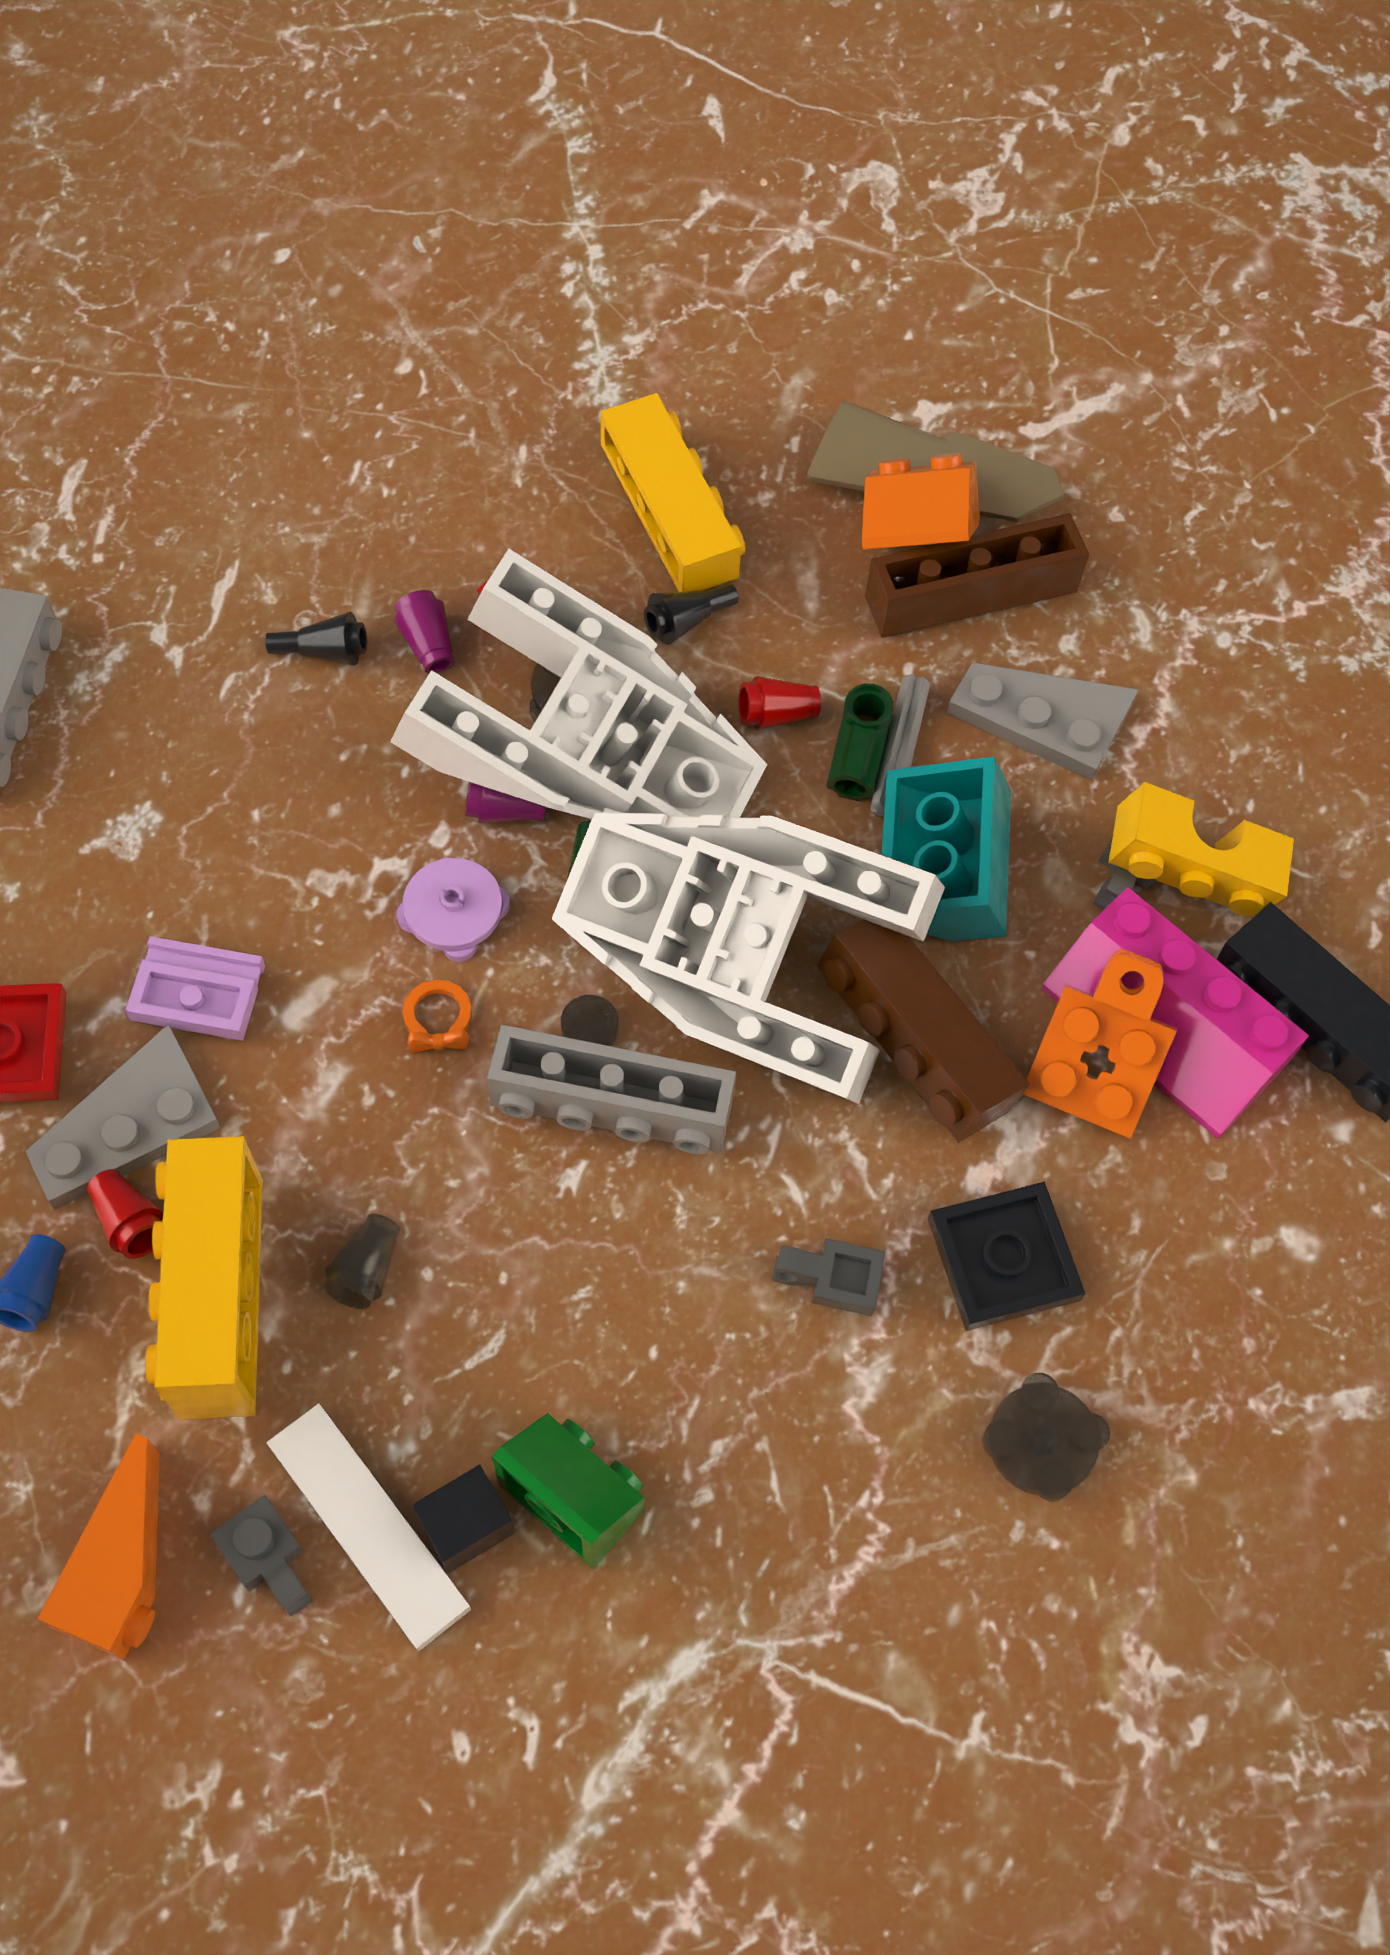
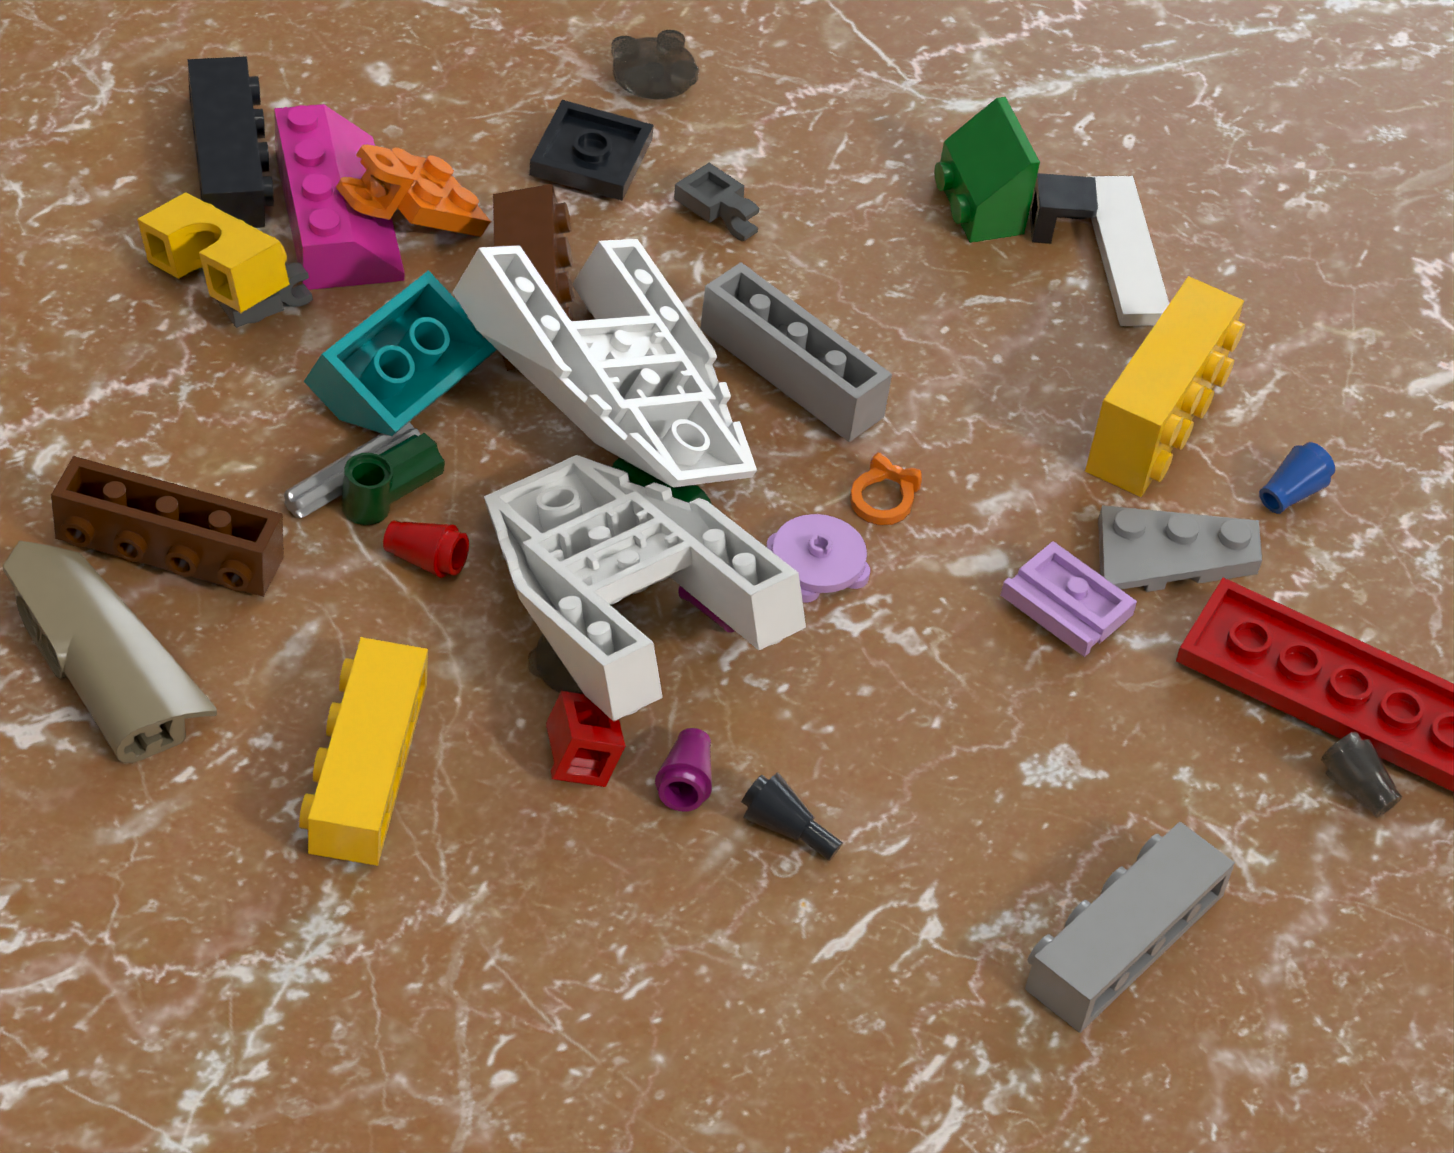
camera: 150 degrees left, 15 degrees down
(112, 1571) = (1315, 298): orange slope -> none
(123, 1213) = (1203, 478): red cone -> none
(259, 1551) = (1201, 262): dark grey plate -> none
(362, 1265) = (1044, 367): clear smoke cone -> none
(590, 1020) = (769, 426): clear smoke tile -> none
(676, 613) = (454, 661): black cone -> none
(920, 502) = (172, 577): orange slope -> none
(1044, 714) = (210, 428): light grey wing -> none

